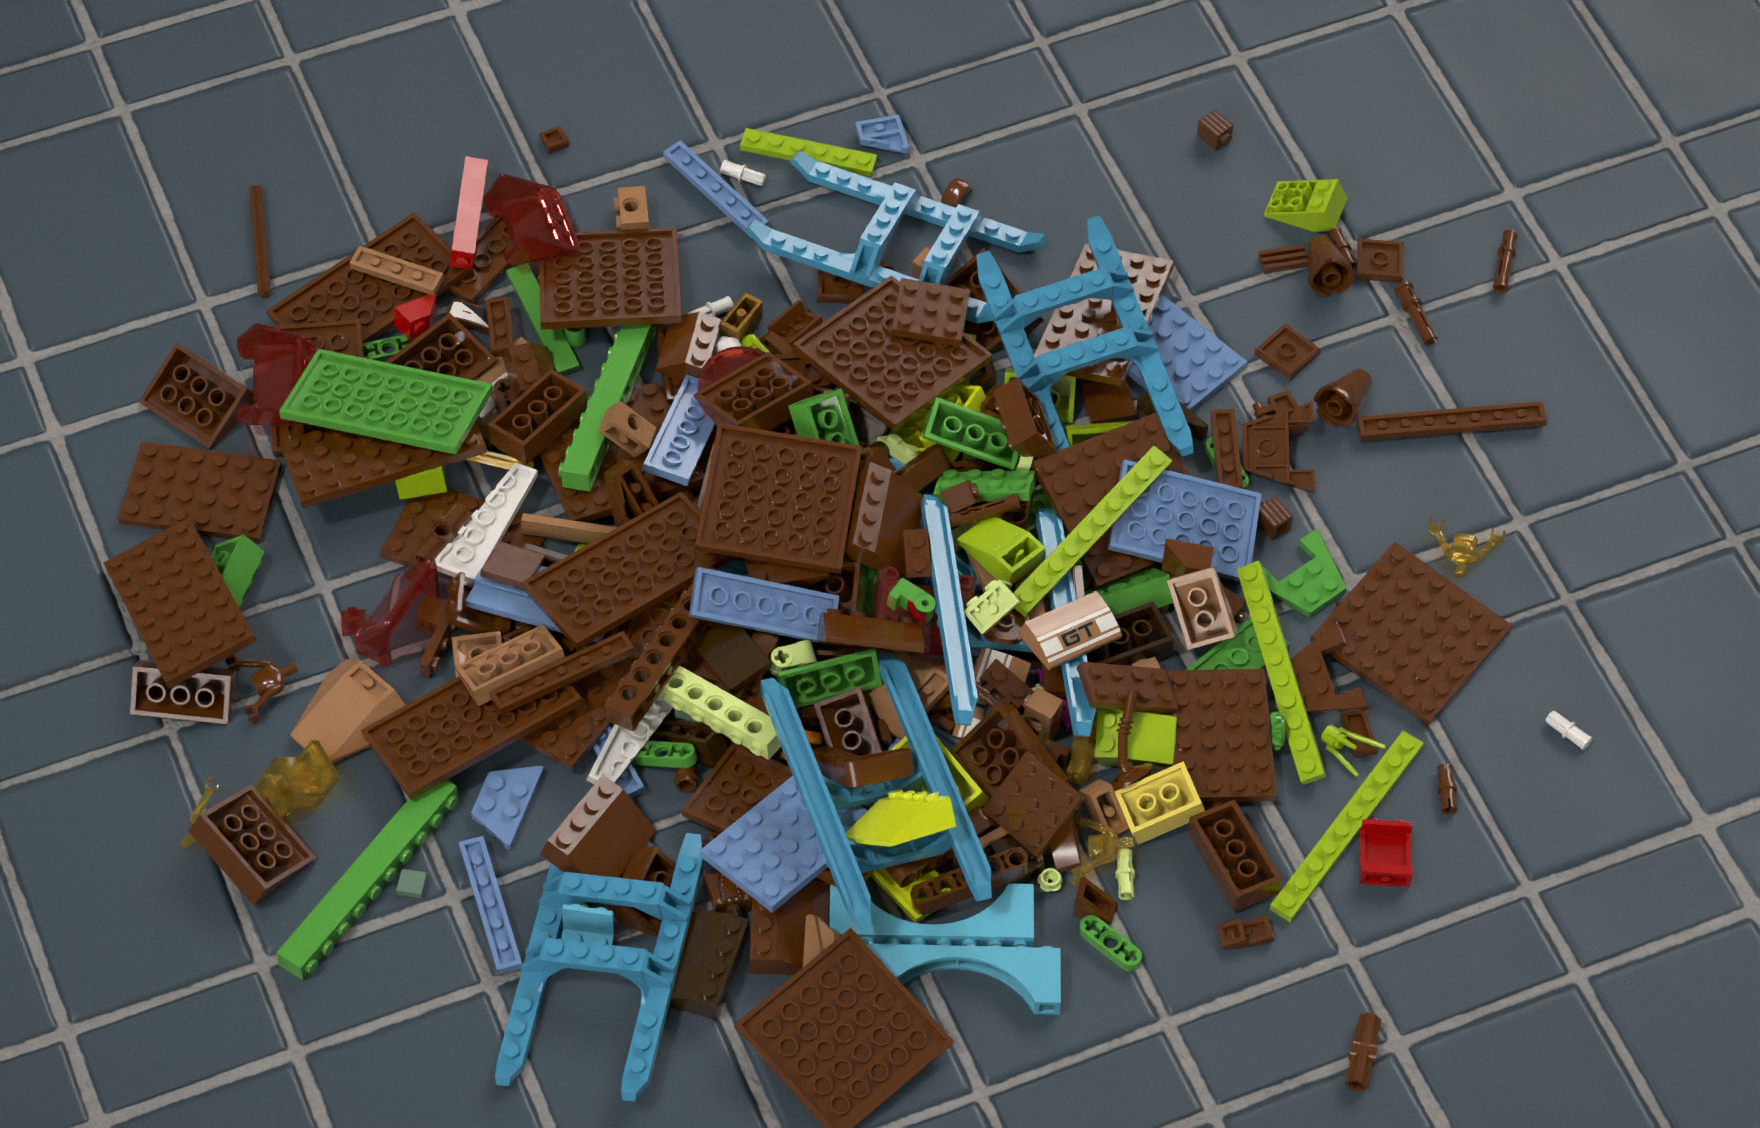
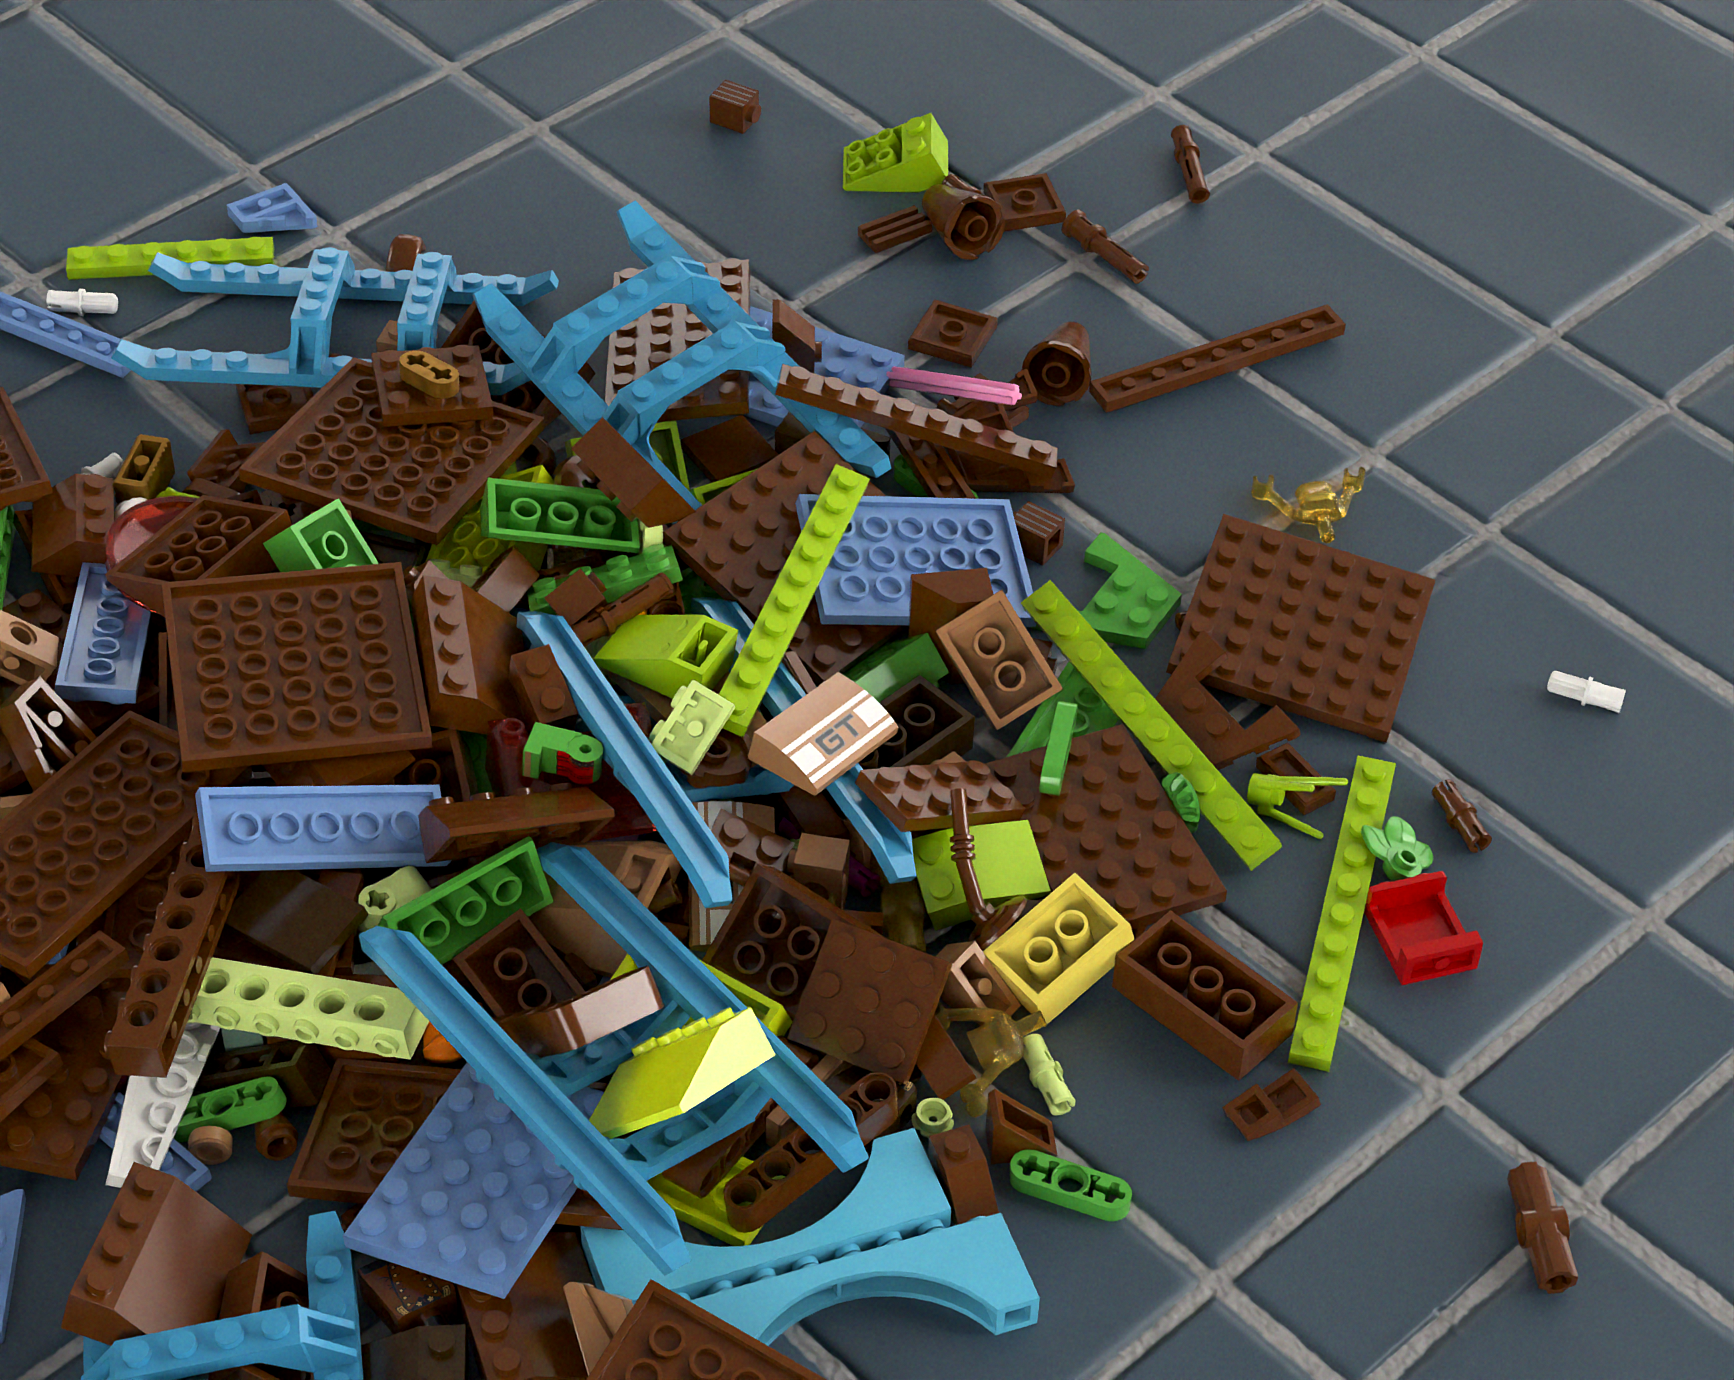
camera: 20 degrees left, 10 degrees down
(649, 772) = (210, 1144): none -> medium nougat tile
(931, 306) = (429, 374): none -> pearl gold beam
(1050, 919) = (962, 1173): none -> reddish brown slope
(1172, 338) = (796, 336): none -> reddish brown slope
(1213, 676) = (1058, 748): none -> bright green beam
(1223, 423) = (916, 421): none -> reddish brown plate
(1263, 398) = (954, 385): none -> bright pink axle
(1398, 797) = (1398, 849): none -> bright green plate

